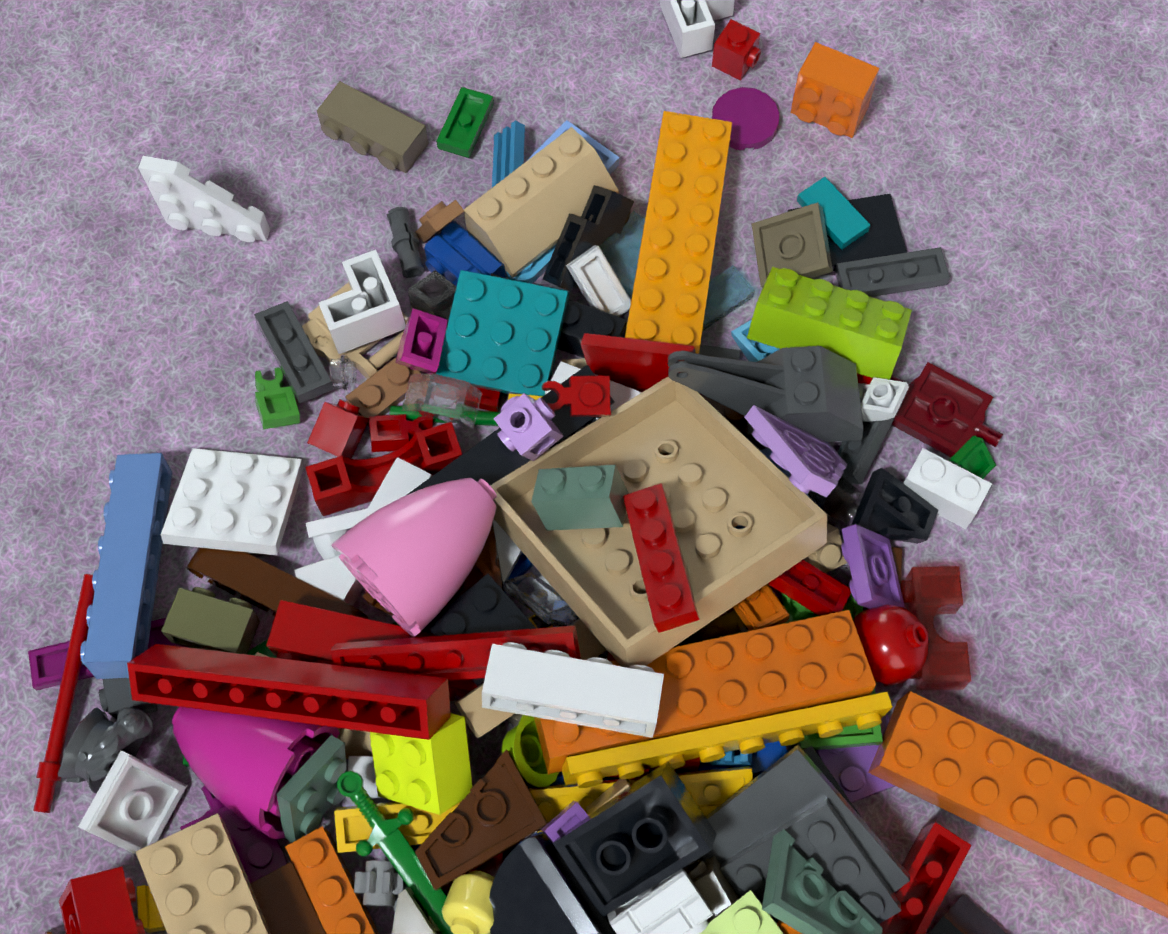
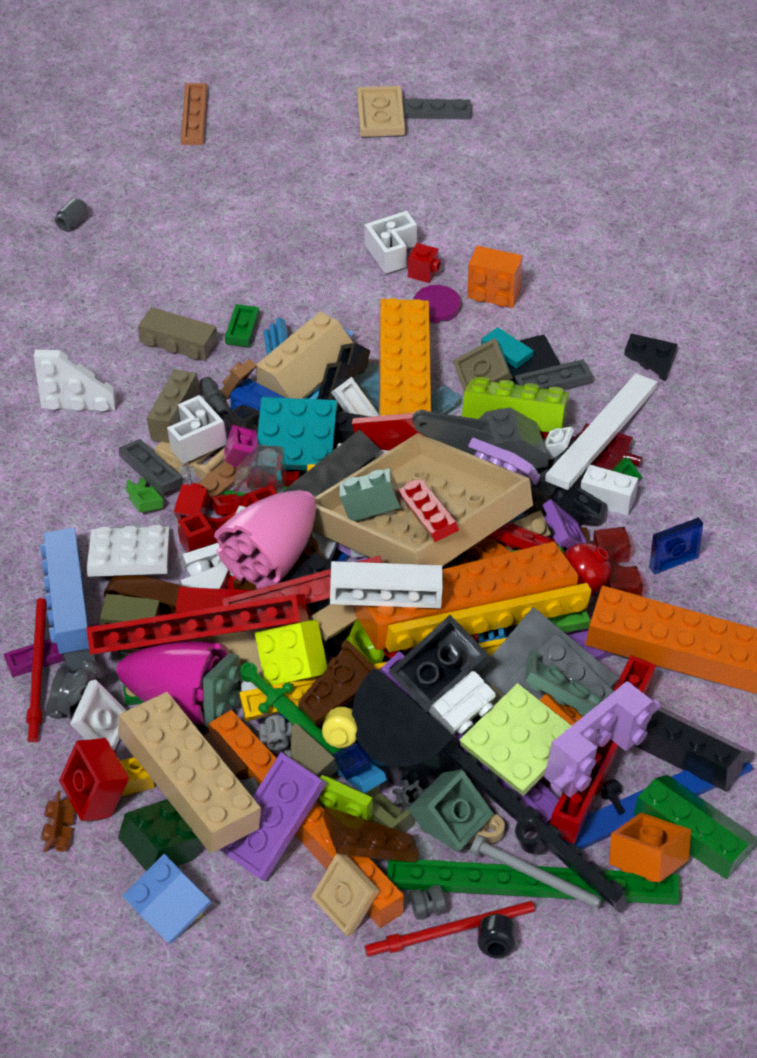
camera: 10 degrees left, 20 degrees down
(355, 231) = (165, 413): none -> dark tan brick
(527, 426) = (328, 462): lavender brick -> none
(585, 395) = (360, 445): red plate -> none
(947, 387) = (601, 431): none -> white tile
(1032, 614) = (676, 546): none -> clear blue plate
(1041, 247) = (651, 353): none -> black wing

